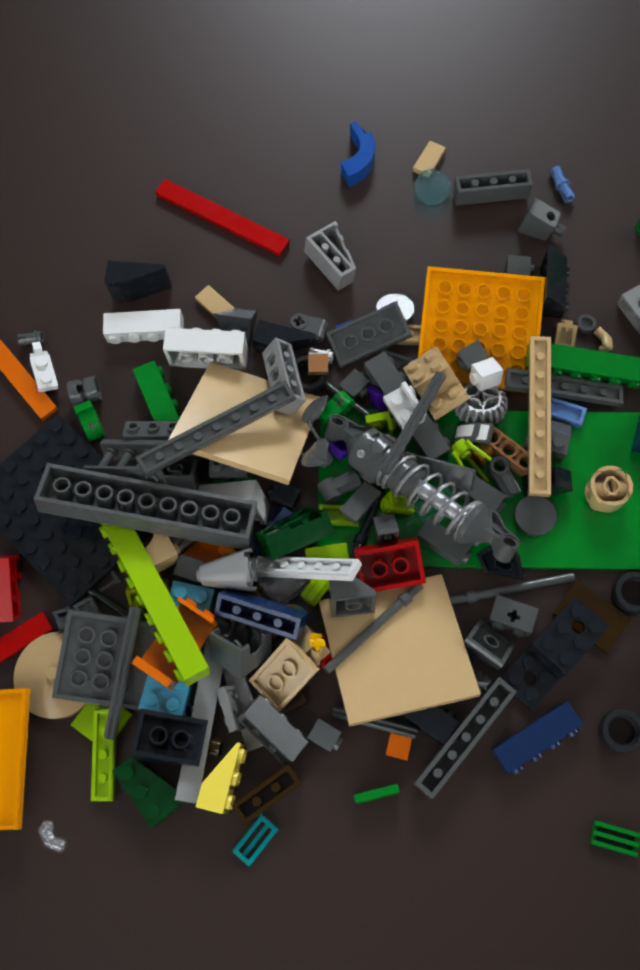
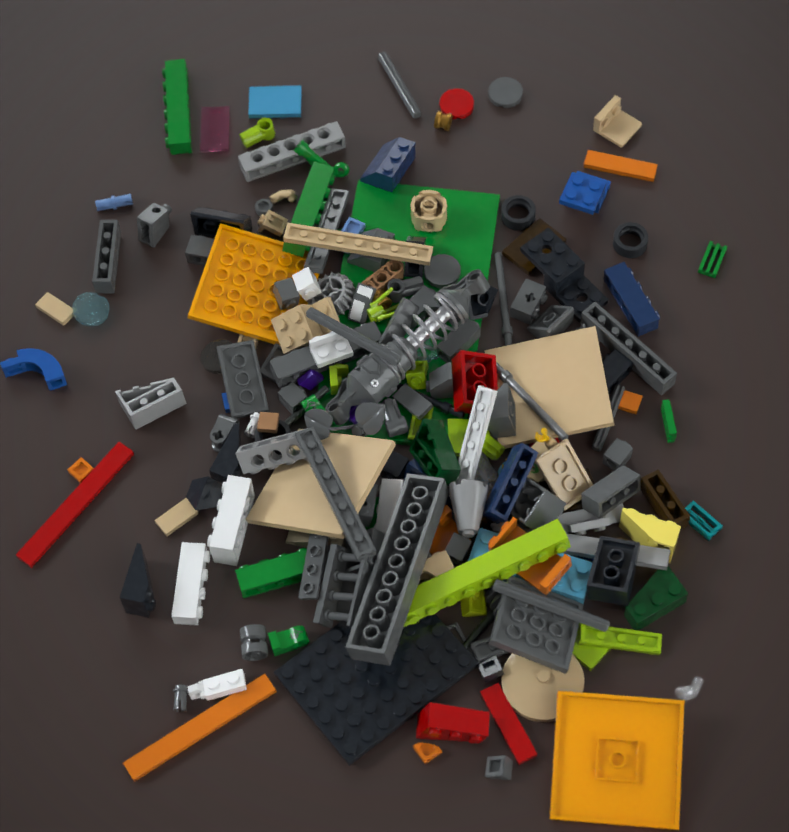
camera: 85 degrees left, 10 degrees down
(257, 214) = (80, 469): none -> orange tile

